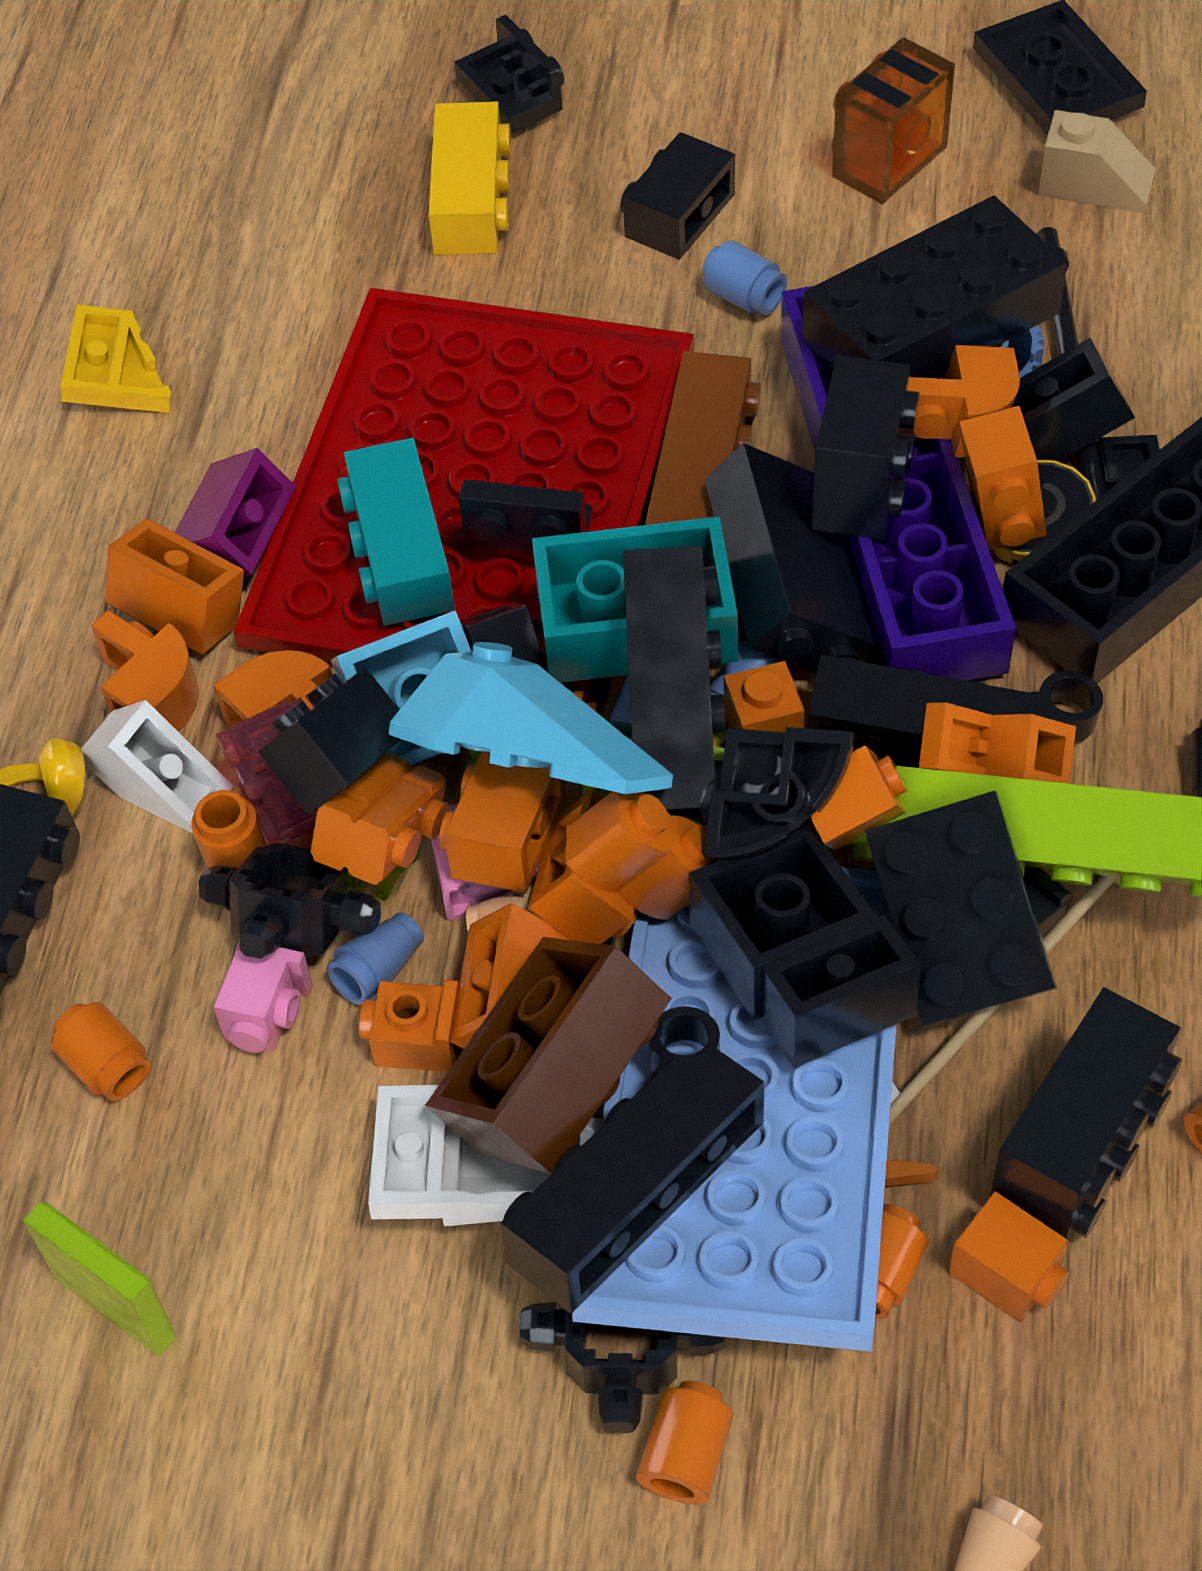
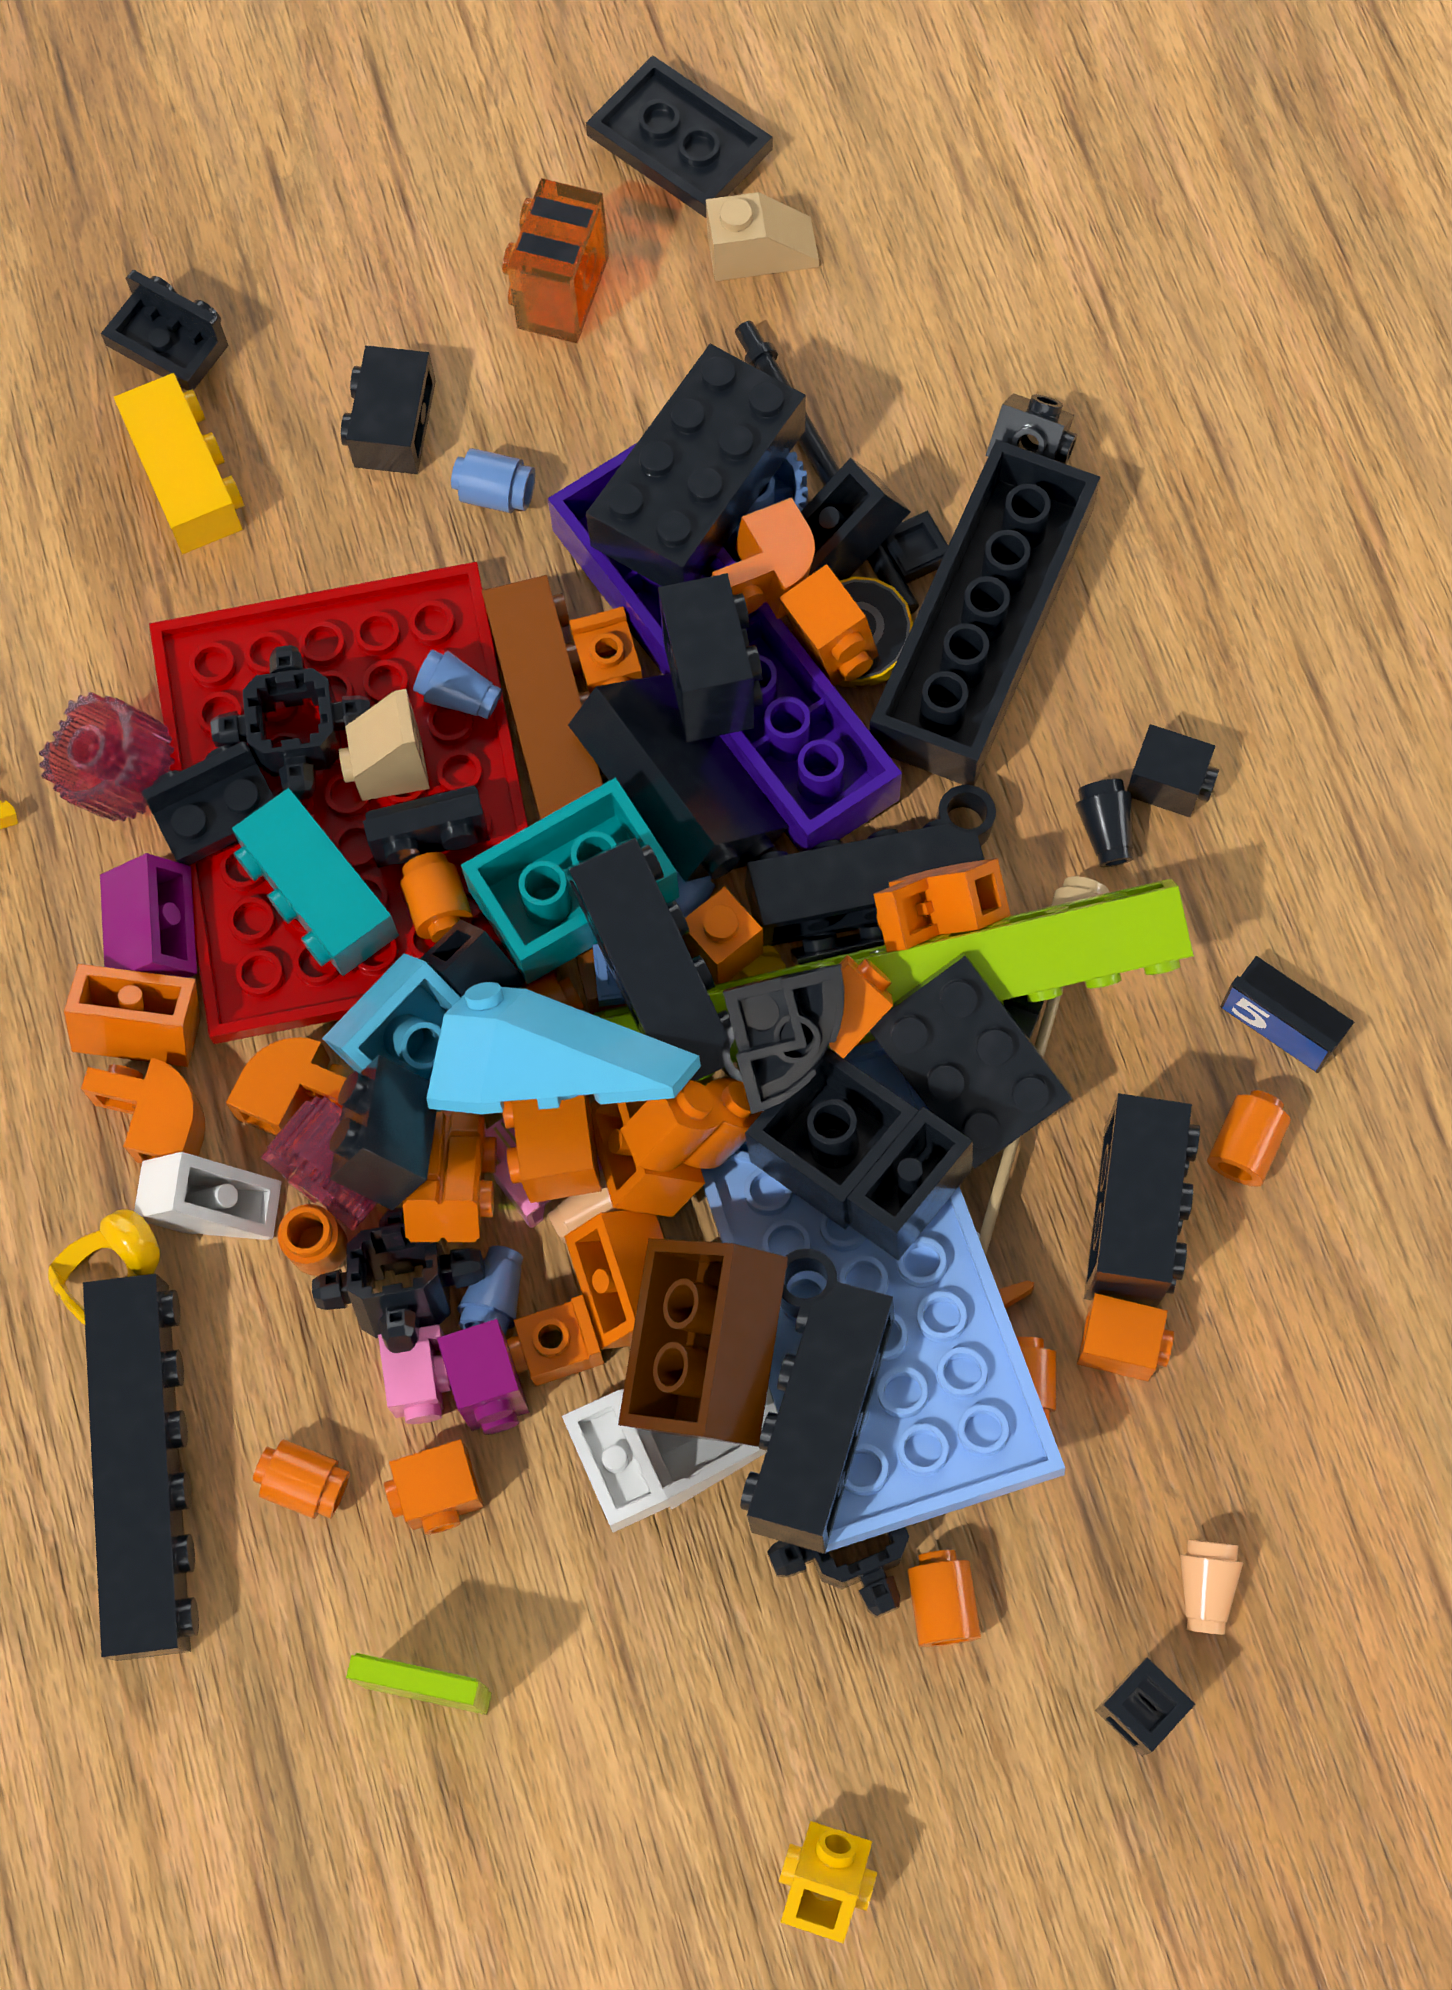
camera: 25 degrees left, 15 degrees up
(223, 1108) = (434, 1488): none -> orange brick
(272, 373) = (106, 756): none -> clear pink brick
(319, 1016) = (483, 1377): none -> magenta brick
(330, 423) = (207, 800): none -> black bracket
(468, 368) = (290, 684): none -> black piece
(502, 575) = (434, 895): none -> orange brick
(523, 437) = (385, 750): none -> tan slope
(616, 417) = (456, 686): none -> medium blue cone
(781, 430) = (603, 636): none -> orange brick

